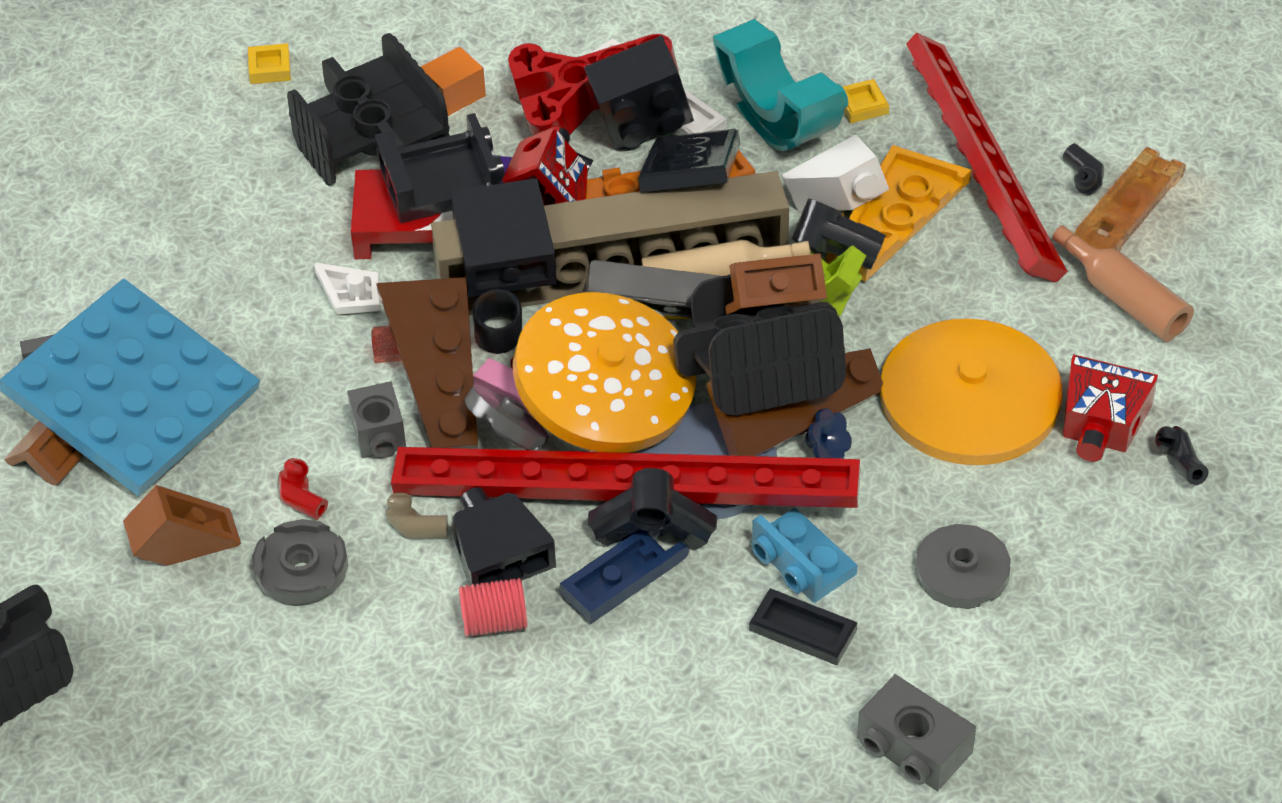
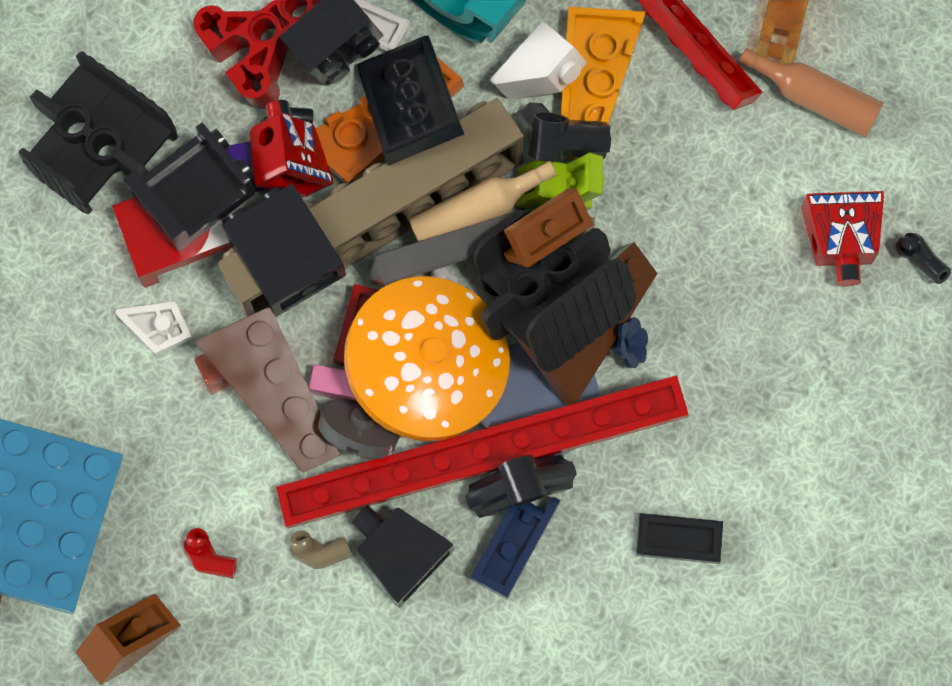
camera: 20 degrees left, 25 degrees up
(294, 544) = (230, 611): dark grey plate -> none
(376, 420) = (236, 450): dark grey brick -> none
(458, 78) = (150, 63): orange panel -> none
(493, 607) = (425, 620): coral piece -> none
(497, 303) = (312, 306): black piece -> none
(802, 554) = (653, 468): dark azure bracket -> none
(905, 710) = (836, 615): dark grey brick -> none
(957, 582) = (780, 451): dark grey plate -> none
(971, 391) = (727, 247): light orange dish -> none

